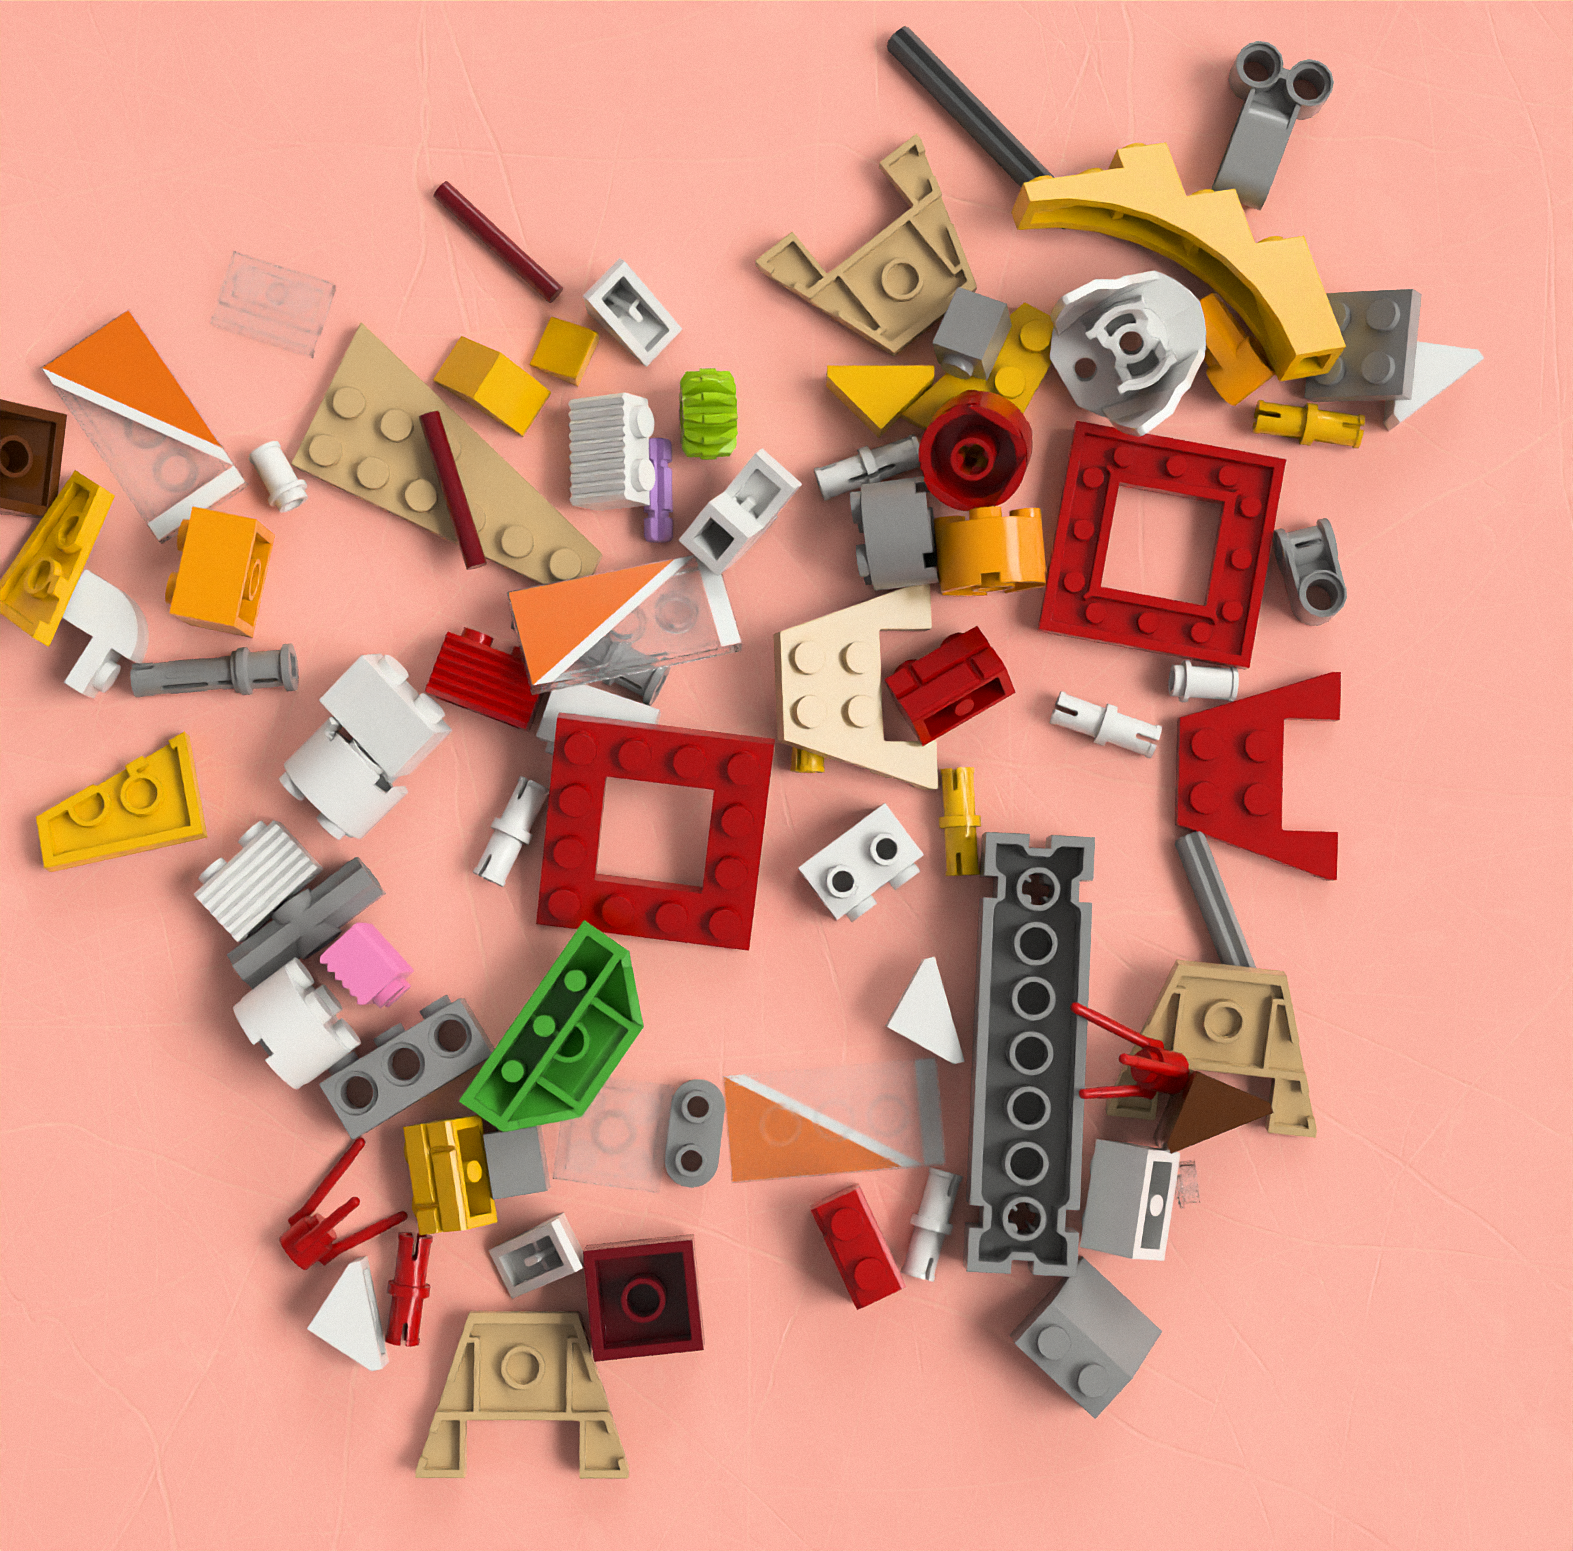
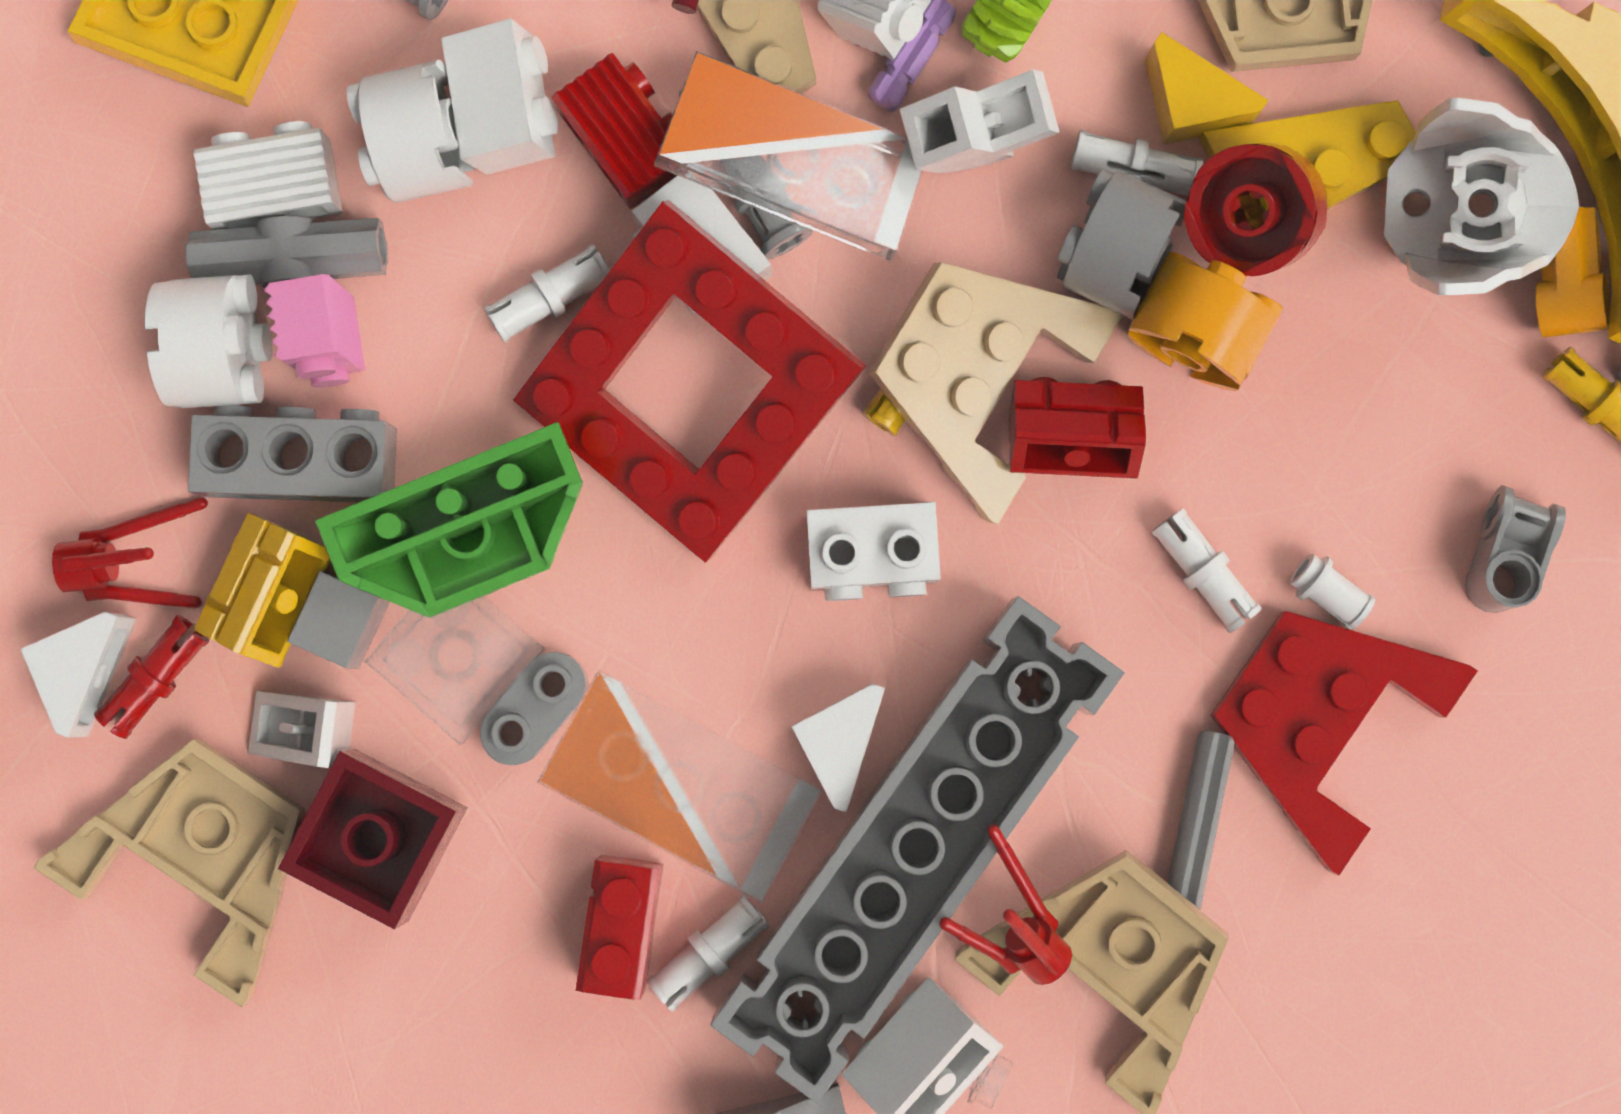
camera: 35 degrees right, 0 degrees up
(960, 821) = (998, 571): yellow pin -> none
(971, 335) = (1326, 94): light grey brick -> none
(1204, 1111) = (1056, 1022): reddish brown slope -> none
(1249, 497) = (1497, 414): red plate -> none

